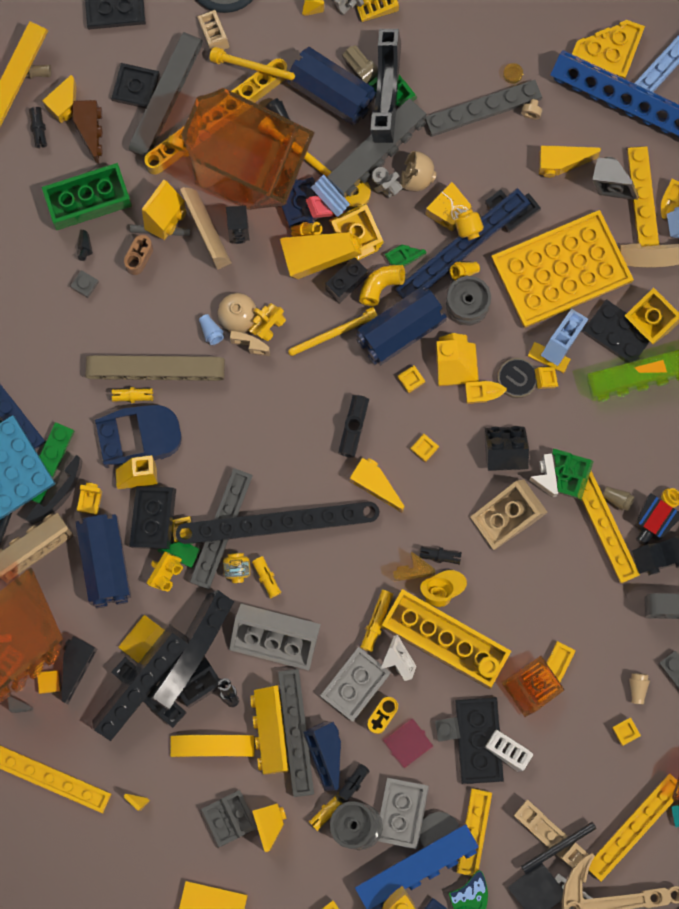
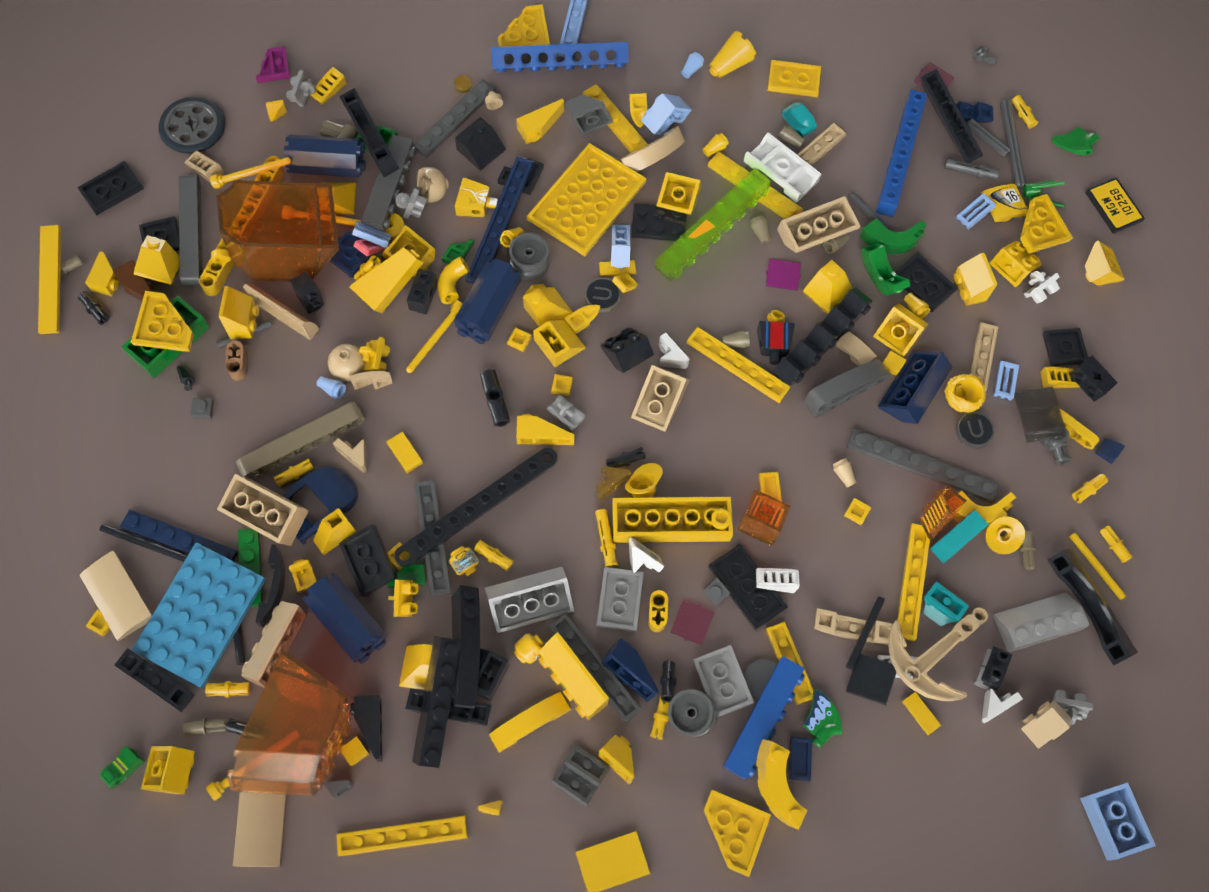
camera: 35 degrees left, 10 degrees down
(85, 419) = (262, 510): none -> tan brick
(87, 186) = (161, 325): none -> yellow plate
(118, 115) = (157, 261): none -> yellow slope
(197, 412) = (356, 455): none -> tan slope
(228, 692) = (518, 665): black pin -> none
(242, 431) = (404, 452): none -> yellow tile
(248, 680) = (528, 648): none -> yellow head
(327, 132) = (344, 197): none -> yellow slope
(410, 479) = (566, 412): none -> light grey hips
(446, 403) = (557, 341): none -> yellow slope
(469, 224) = (496, 198): yellow head -> none
(490, 152) = (479, 143): none -> black slope
(571, 473) = (690, 339): green slope -> none
(648, 866) = (943, 605): none -> teal slope

